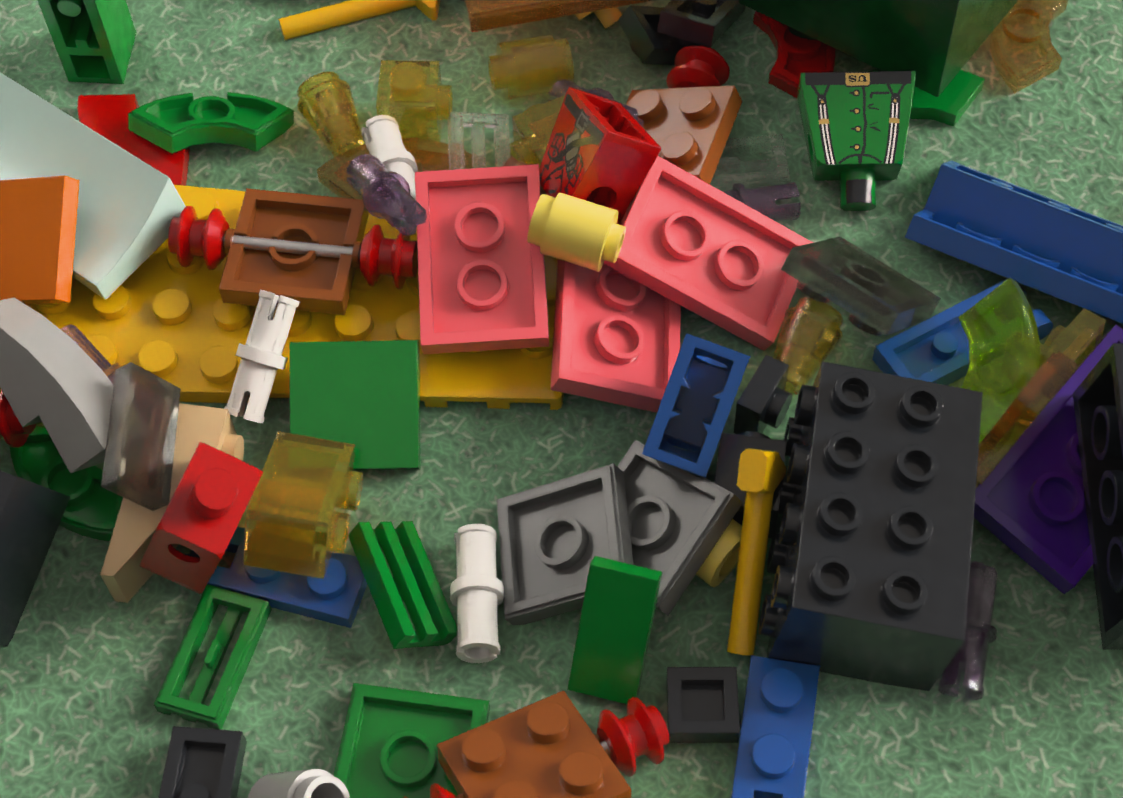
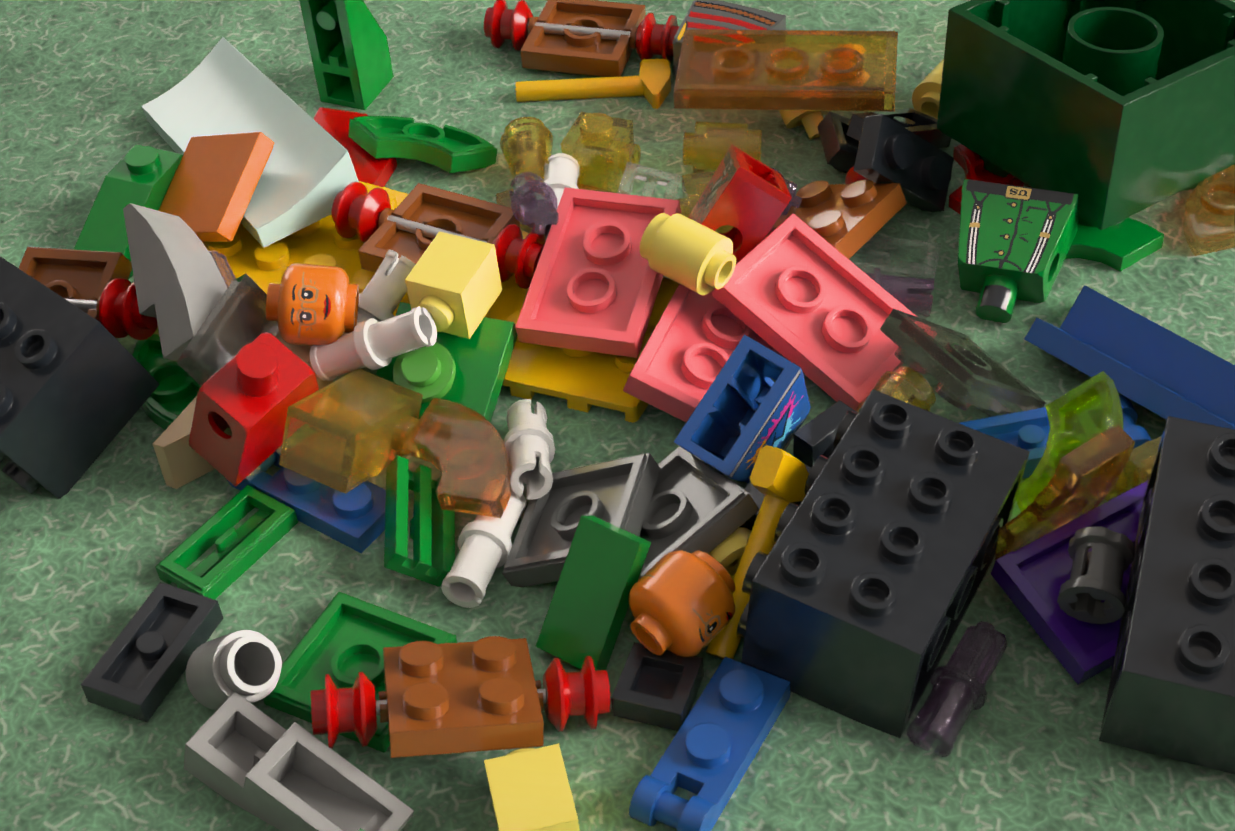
camera: 20 degrees right, 15 degrees down
(213, 378) = (313, 304): none -> orange head
(288, 404) = (374, 344): none -> white pin
(346, 415) = (426, 371): none -> bright green plate
(349, 319) = (455, 283): none -> light yellow brick
(426, 501) = (467, 455): none -> clear orange tile
(480, 475) = (529, 449): none -> white pin
(706, 622) = (682, 603): none -> orange head
(728, 57) = (899, 156): none -> black plate
(1066, 495) = (1096, 575): none -> dark grey bush

